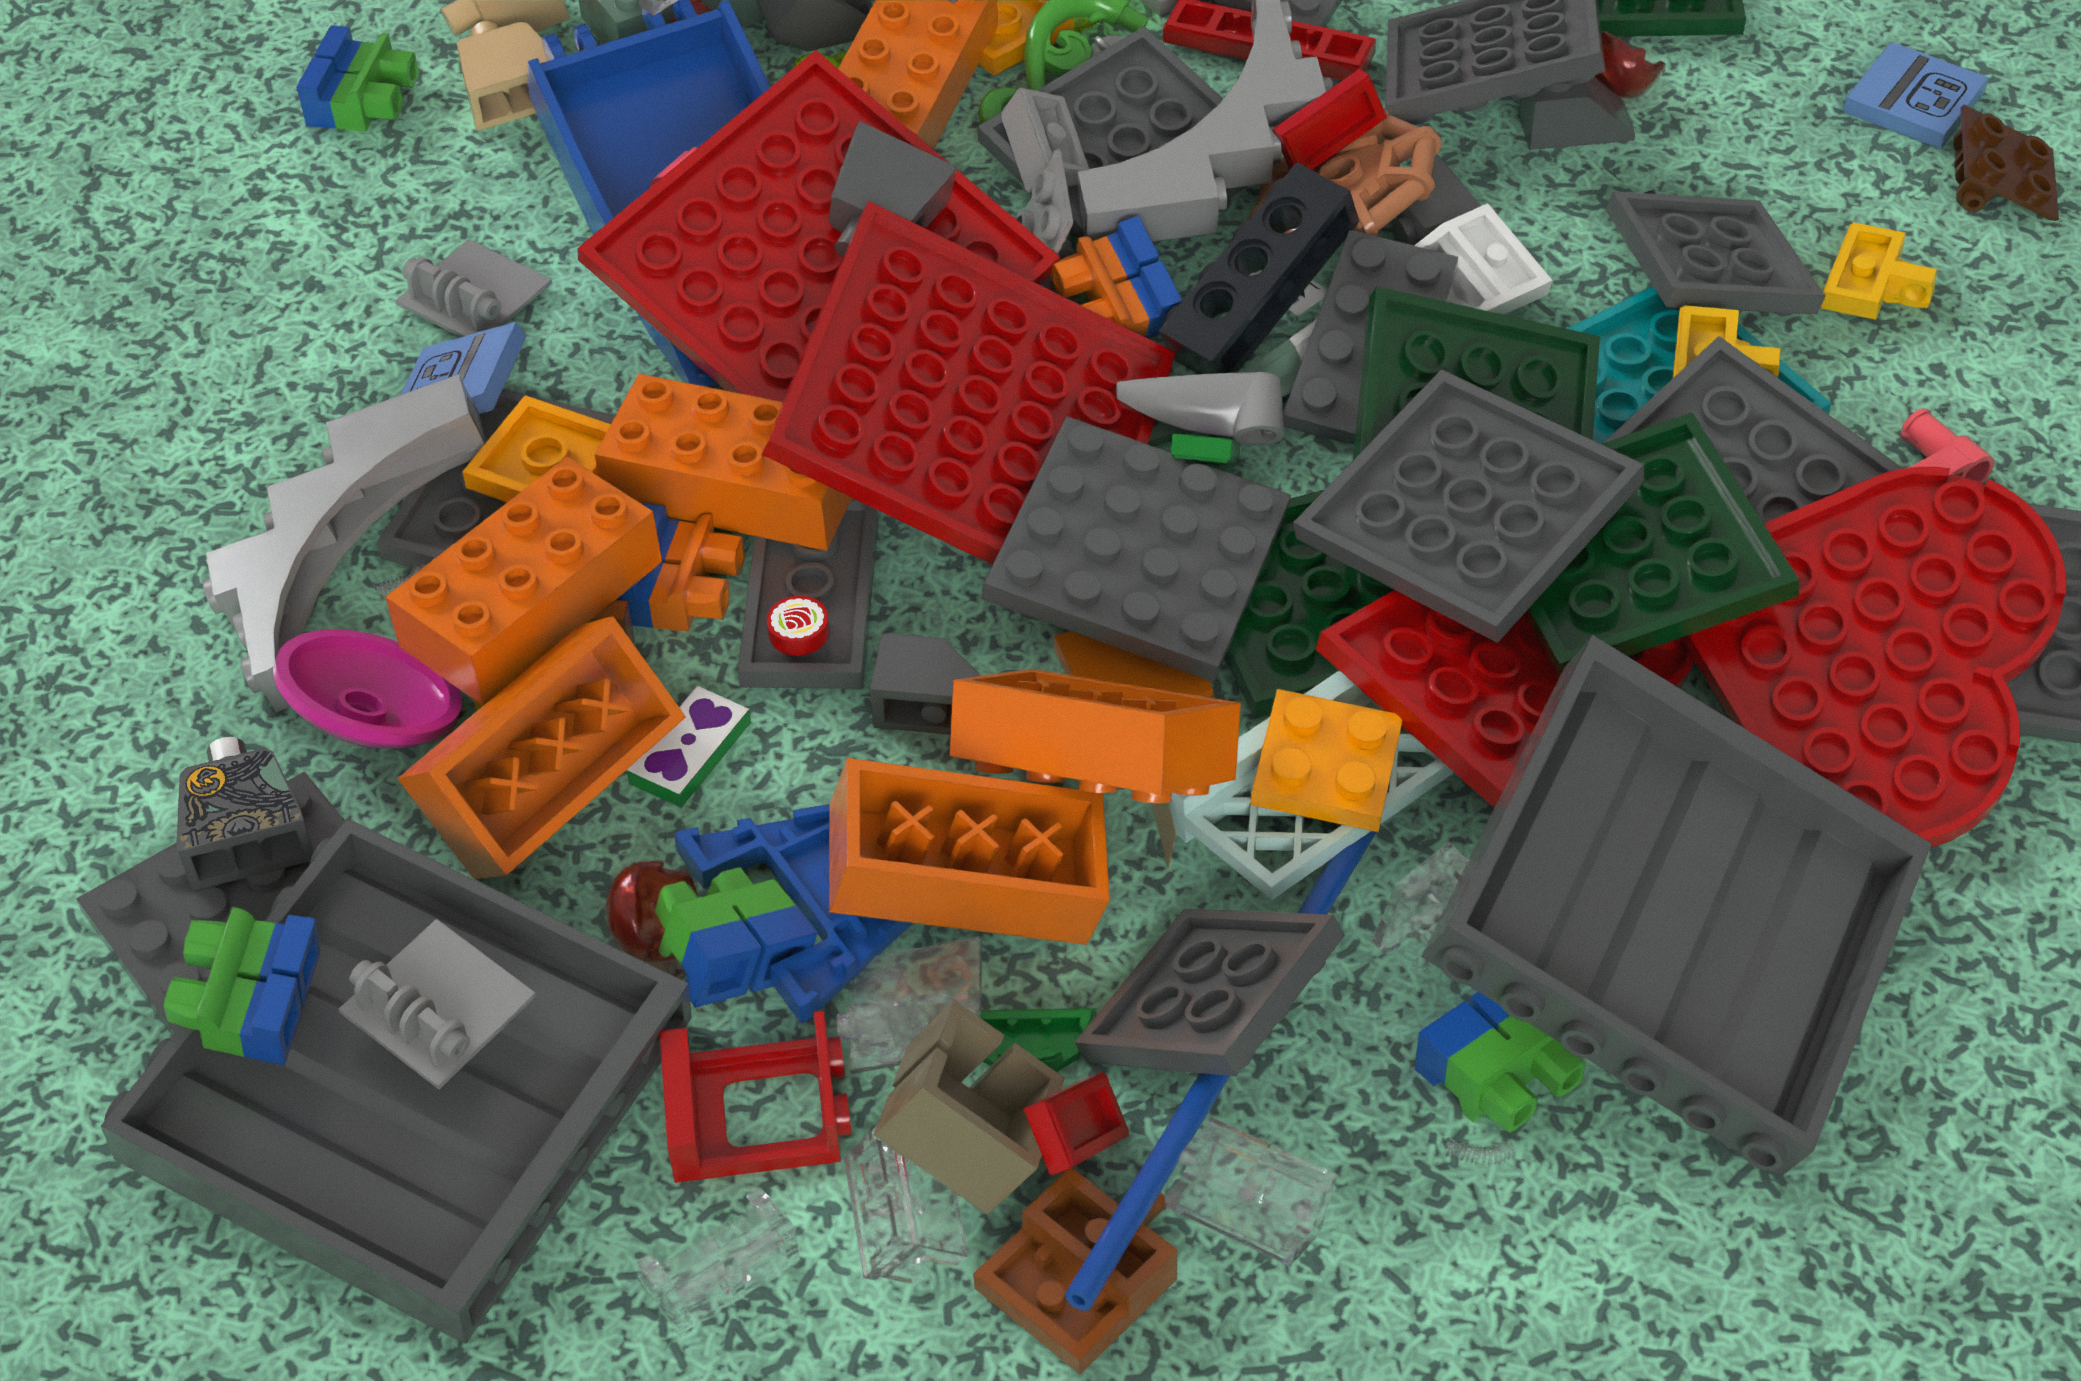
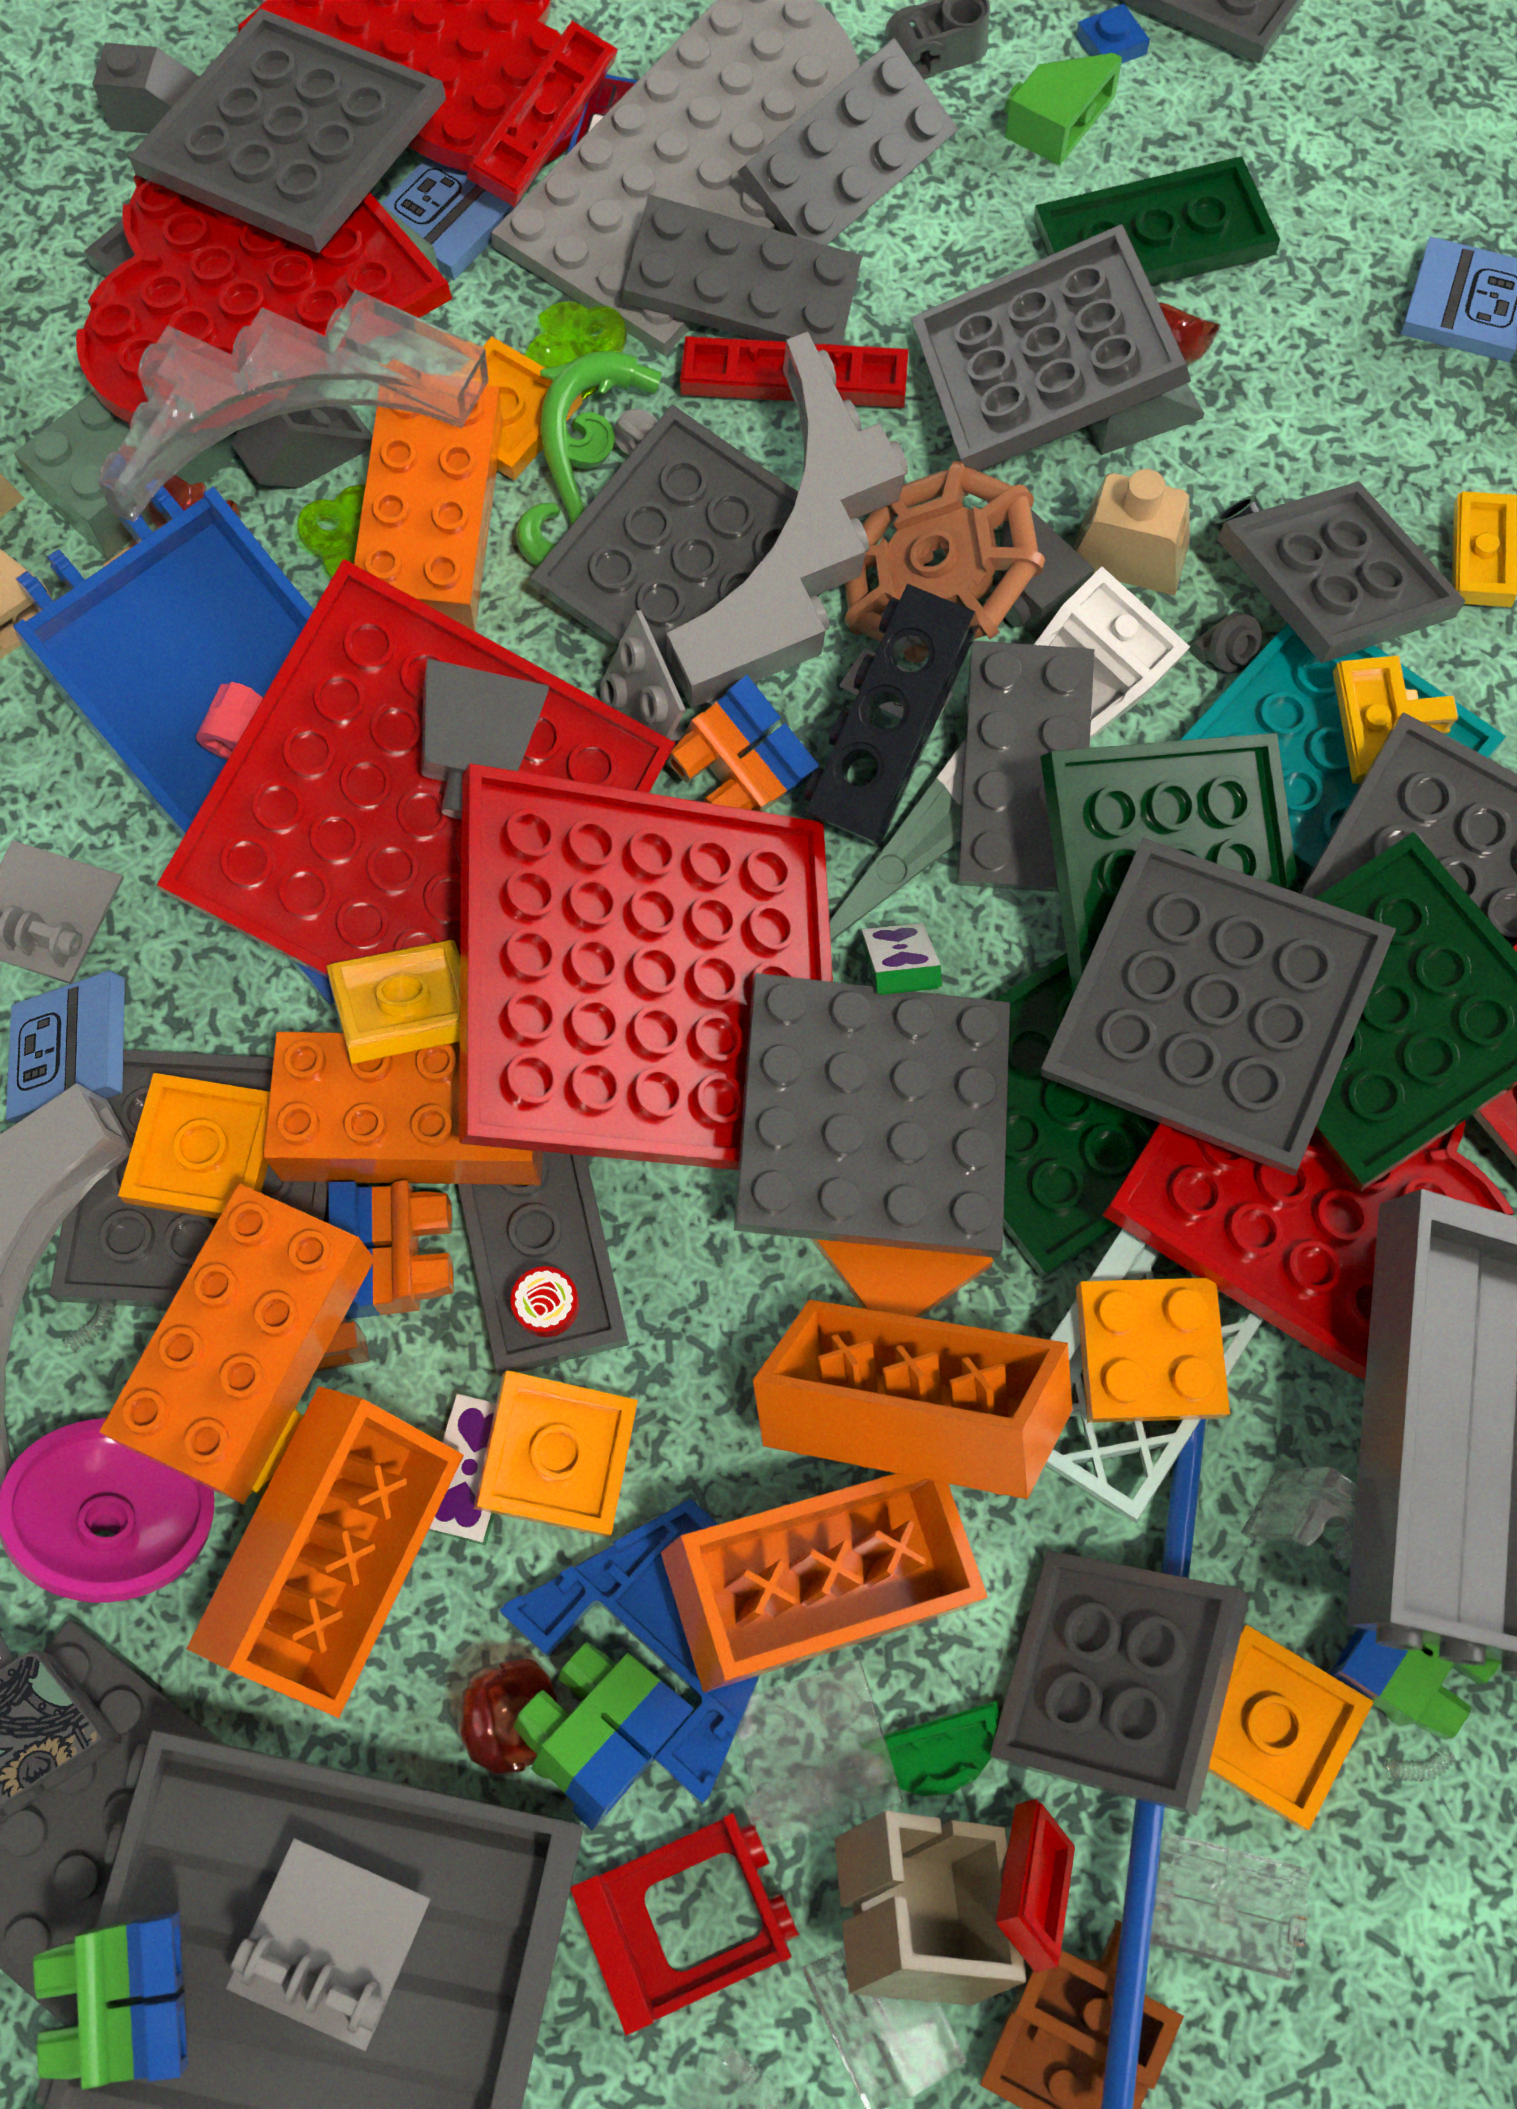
camera: 15 degrees left, 20 degrees up
(744, 370) = (398, 1000): none -> yellow tile
(766, 740) = (556, 1454): none -> light orange plate
(915, 683) = (700, 1335): dark grey slope -> none
(1037, 127) = (608, 581): light grey slope -> none
(1216, 404) = (887, 894): light grey piece -> none
(1330, 122) = (912, 500): red tile -> none
(1348, 1082) = (1284, 1729): none -> light orange plate
(1537, 191) = (1137, 531): none -> tan torso
(1596, 291) = (1230, 643): none -> dark grey plate

